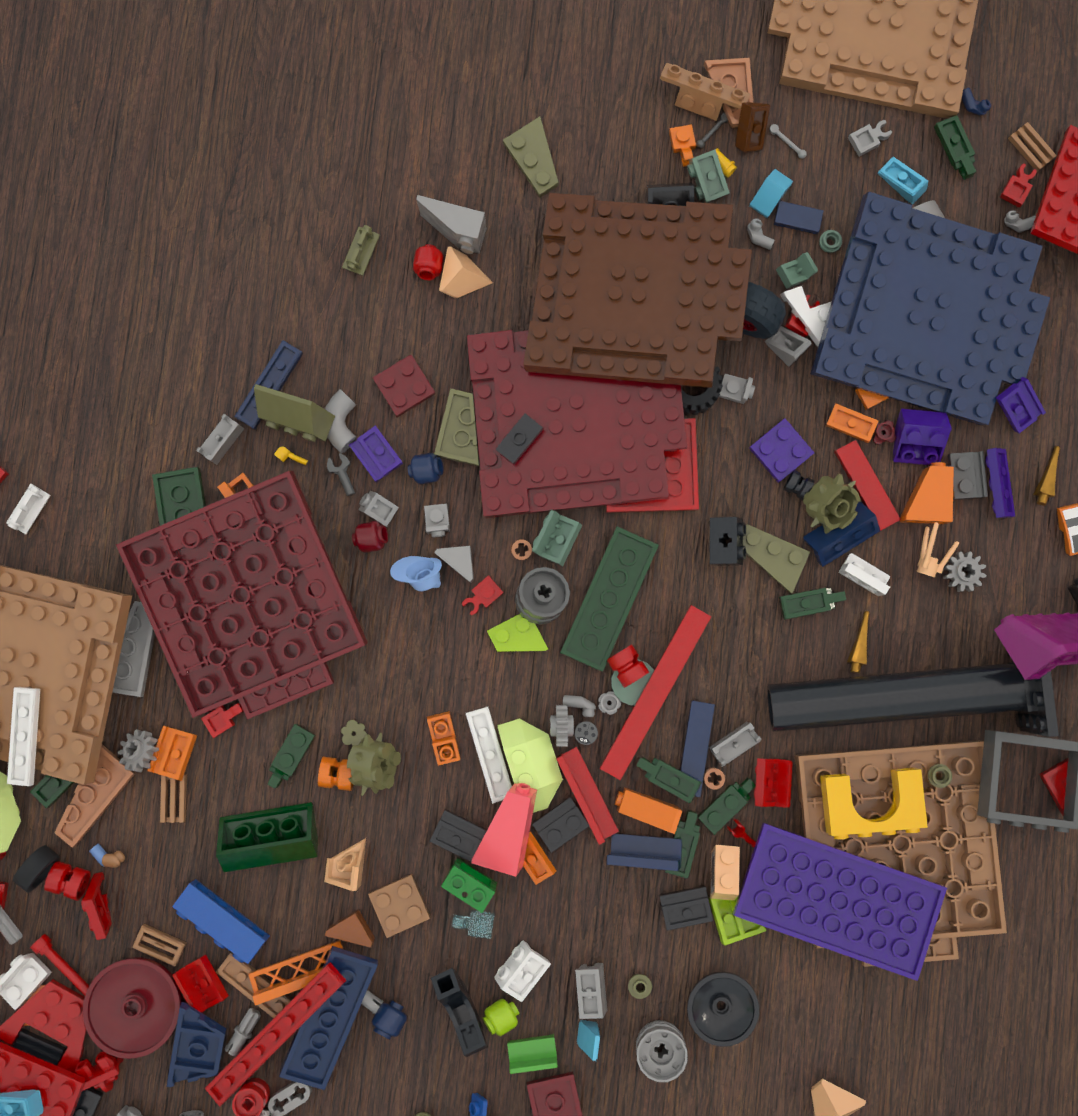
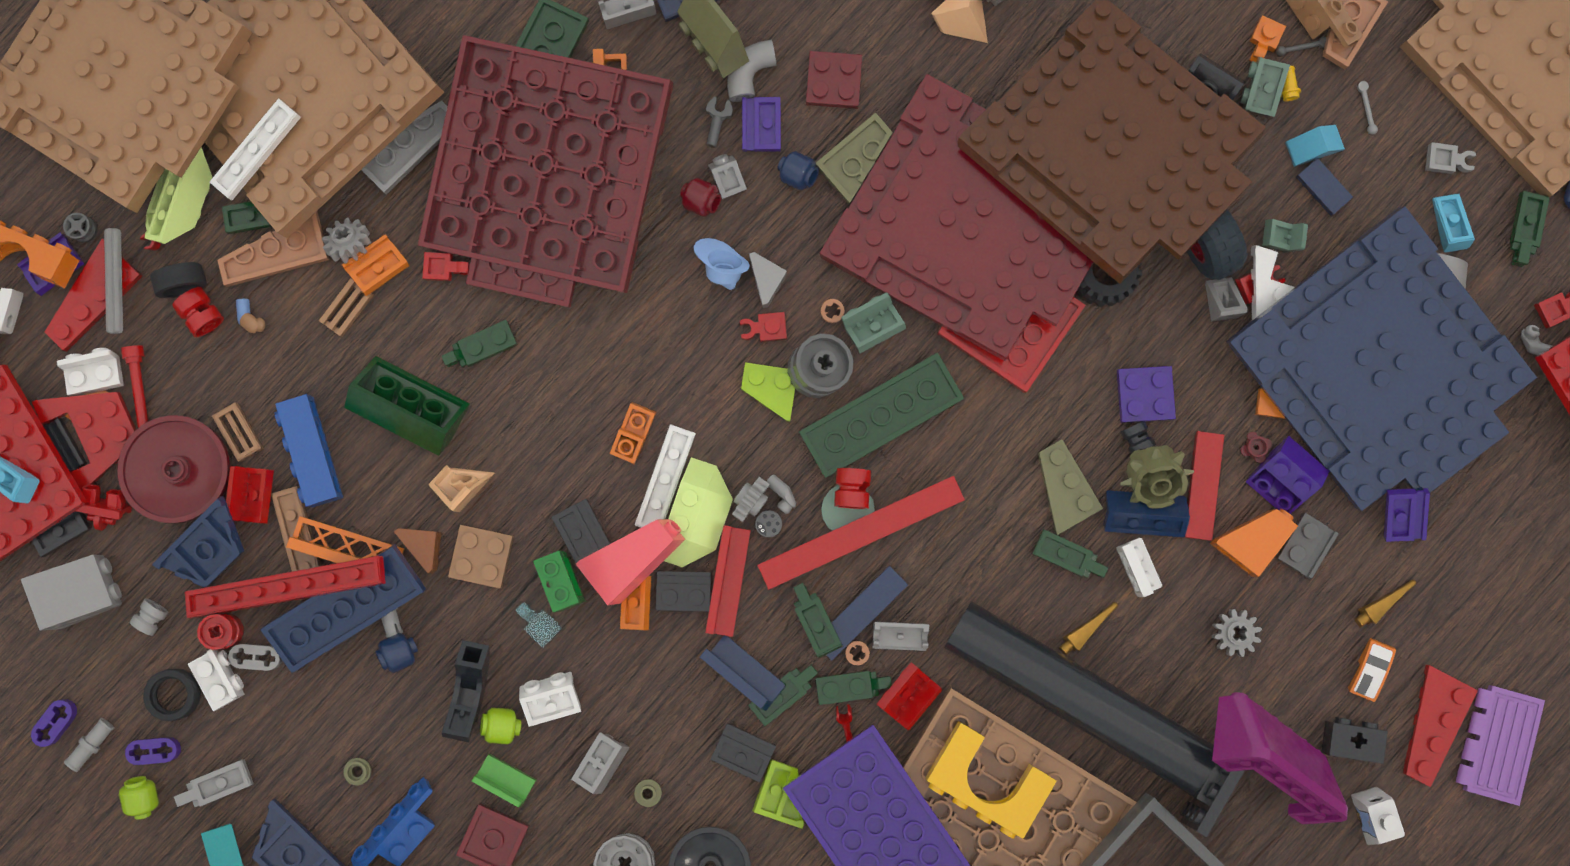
camera: 35 degrees right, 0 degrees up
(97, 907) = (206, 356): red wing -> none
(243, 1032) = (256, 566): light grey axle -> none
(283, 453) = (675, 62): yellow hand -> none
(326, 773) = (520, 397): orange wheel -> none
(348, 738) = (557, 361): olive plant -> none
(373, 764) = (551, 407): olive brick -> none
(437, 520) = (773, 226): light grey bracket -> none
(519, 438) = (905, 204): black plate -> none
(589, 1038) = (566, 803): medium azure slope -> none
(604, 707) = (807, 505): light grey plate -> none
(648, 809) = (774, 635): orange slope -> none
(721, 530) = (1033, 428): black brick -> none
(725, 872) = (803, 745): light nougat brick -> none
(737, 388) = (1145, 305): light grey bracket -> none
(752, 126) = (1342, 68): reddish brown slope -> none
(756, 235) = (1271, 175): light grey arm -> none
(835, 237) = (1345, 228): sand green plate -> none
(852, 423) = (1231, 416): orange plate -> none
(927, 564) = (1207, 601): light nougat plant -> none
(946, 775) = (1079, 804): olive plate -> none
(1000, 483) = (1333, 575): dark purple plate -> none

